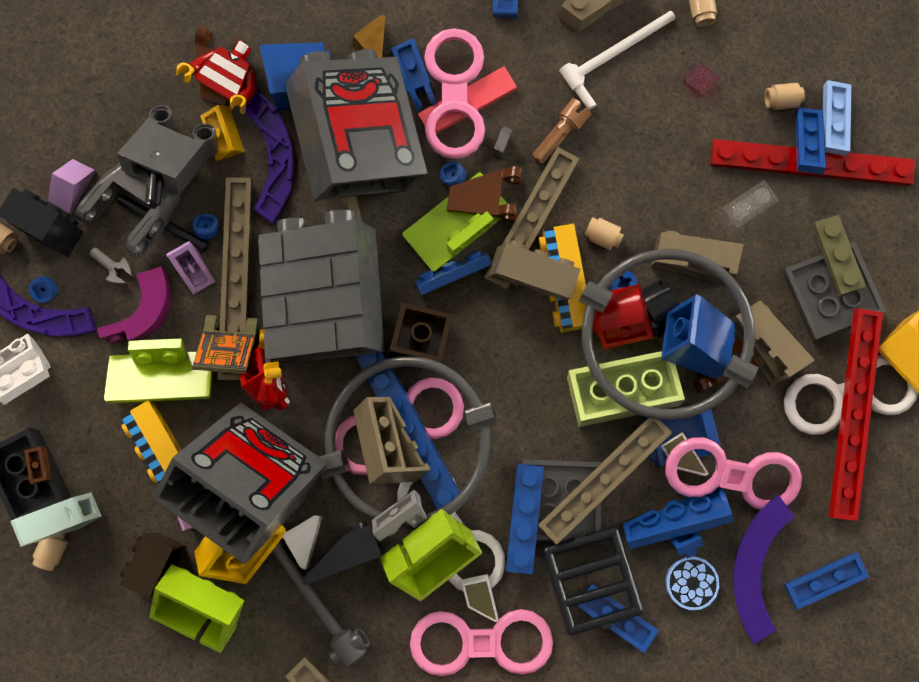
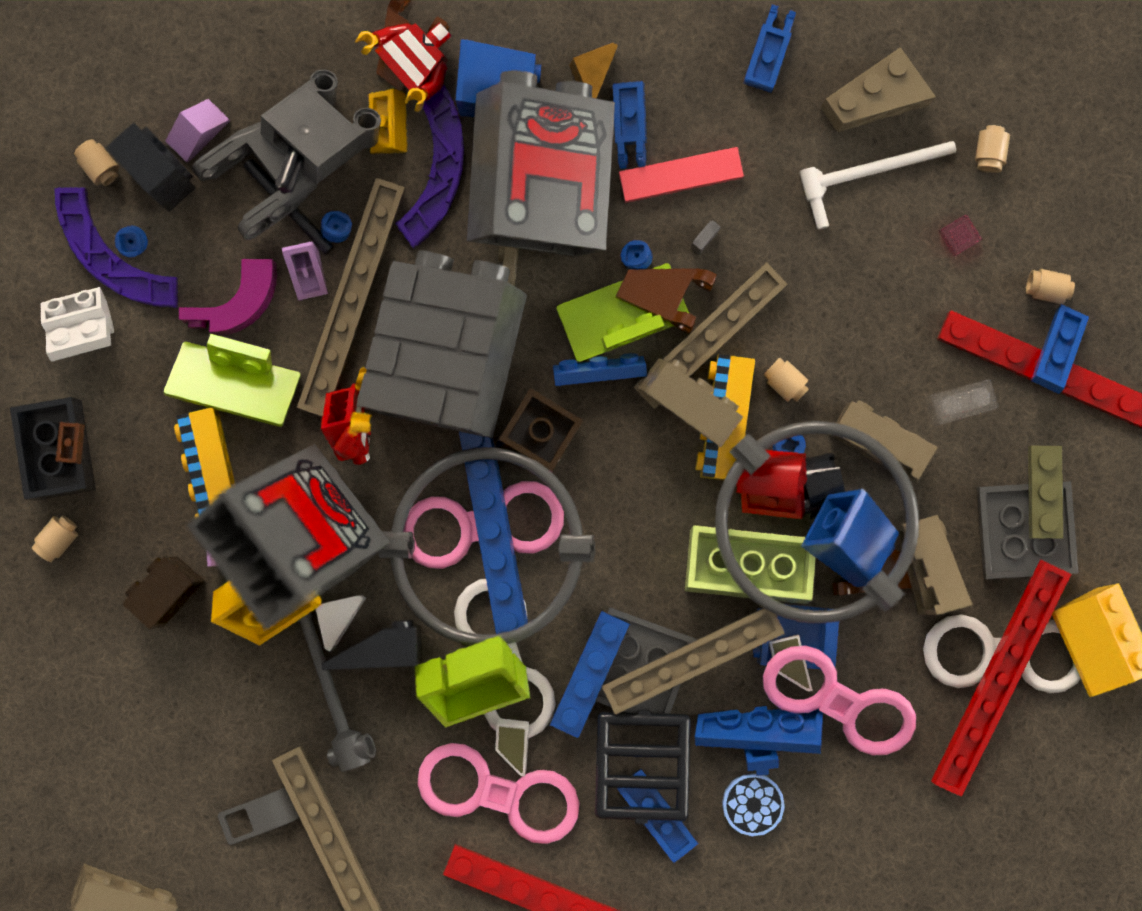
camera: 15 degrees right, 5 degrees up
(56, 519) = (73, 509): light aqua slope -> none
(112, 266) = (216, 238): light grey bar -> none
(187, 603) = (188, 646): lime piece -> none
(224, 349) = (315, 378): flag -> none
(385, 443) = (462, 543): dark tan wedge -> none
(406, 509) = (458, 623): light grey hinge -> none
(454, 93) = (668, 162): bright pink bar -> none
(569, 121) = (790, 236): medium nougat piece -> none
(749, 565) = (823, 805): dark purple tile -> none
(826, 580) = (903, 850): blue plate -> none
(837, 117) = (1101, 331): light blue plate -> none

